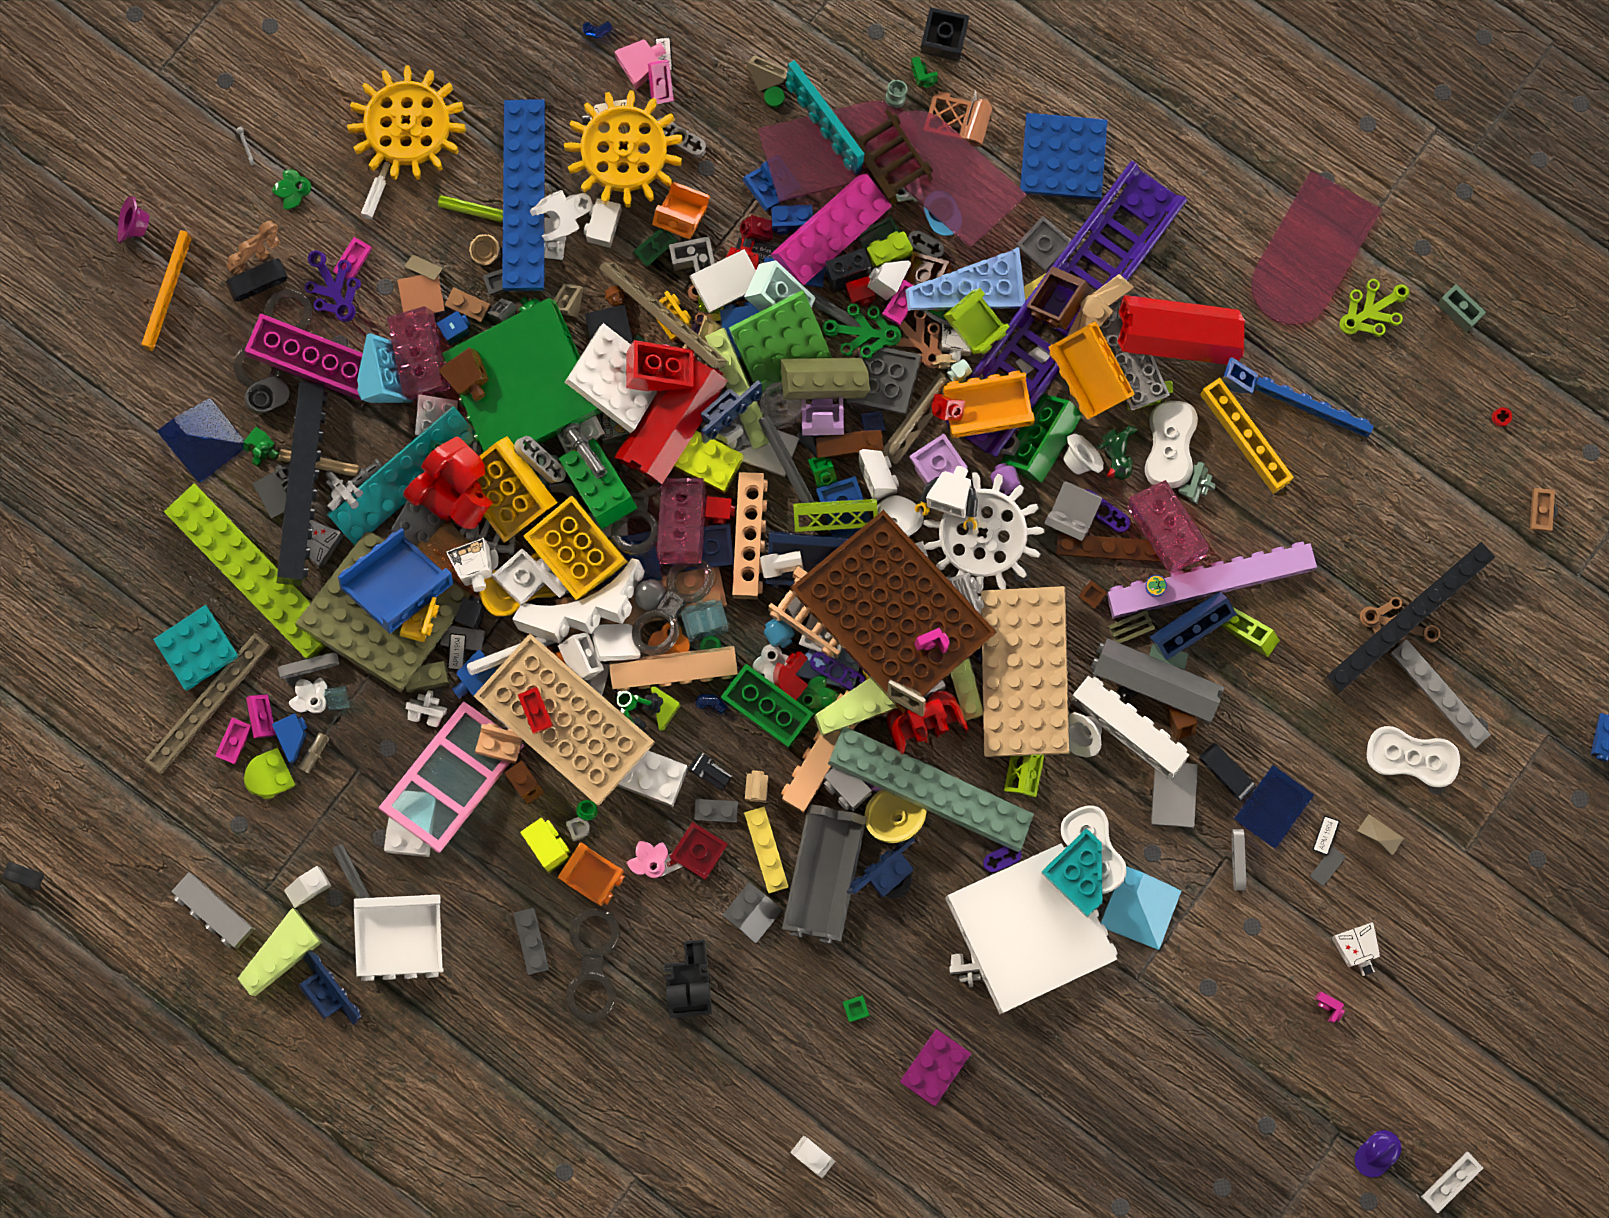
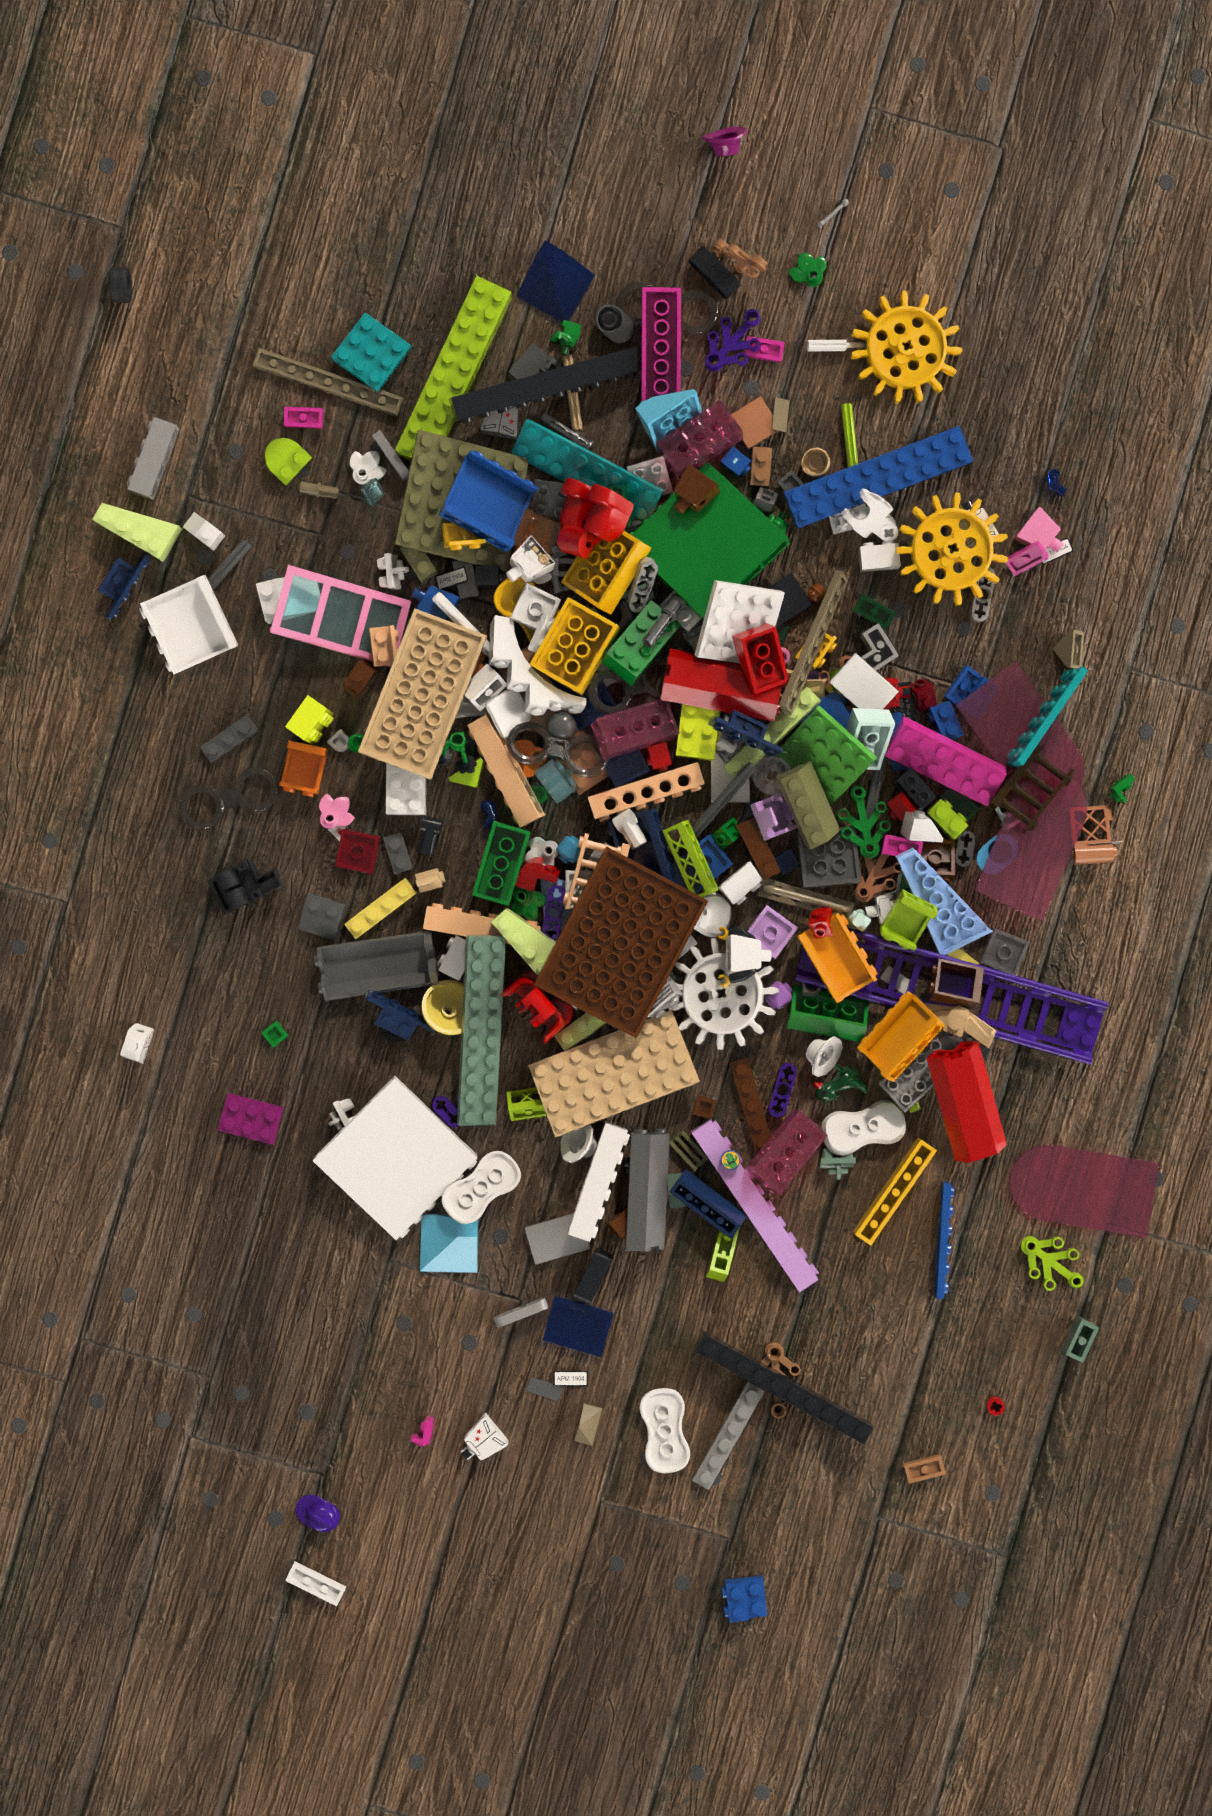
camera: 65 degrees right, 10 degrees up
(166, 291) = (675, 197): light orange tile -> none
(260, 716) = (333, 432): dark pink plate -> none
(291, 735) = (325, 465): blue slope -> none
(340, 492) = (550, 423): light grey piece -> none
(535, 710) = (419, 666): red plate -> none
(569, 300) = (797, 554): dark tan slope -> none
(681, 210) = (914, 622): orange panel -> none
(774, 97) = (1051, 664): green tile -> none
(896, 94) = (1096, 768): sand green wheel -> none
(906, 697) = (546, 984): dark tan slope -> none
(929, 639) = (603, 983): dark pink bracket -> none
(944, 34) = (1164, 794): black brick -> none
(944, 361) = (863, 904): tan plate -> none
(1063, 156) = (1091, 940): blue plate -> none
(1073, 511) = (770, 1064): light grey bracket -> none
(1079, 872) = (455, 1183): teal plate -> none
(1239, 377) = (944, 1167): blue slope -> none

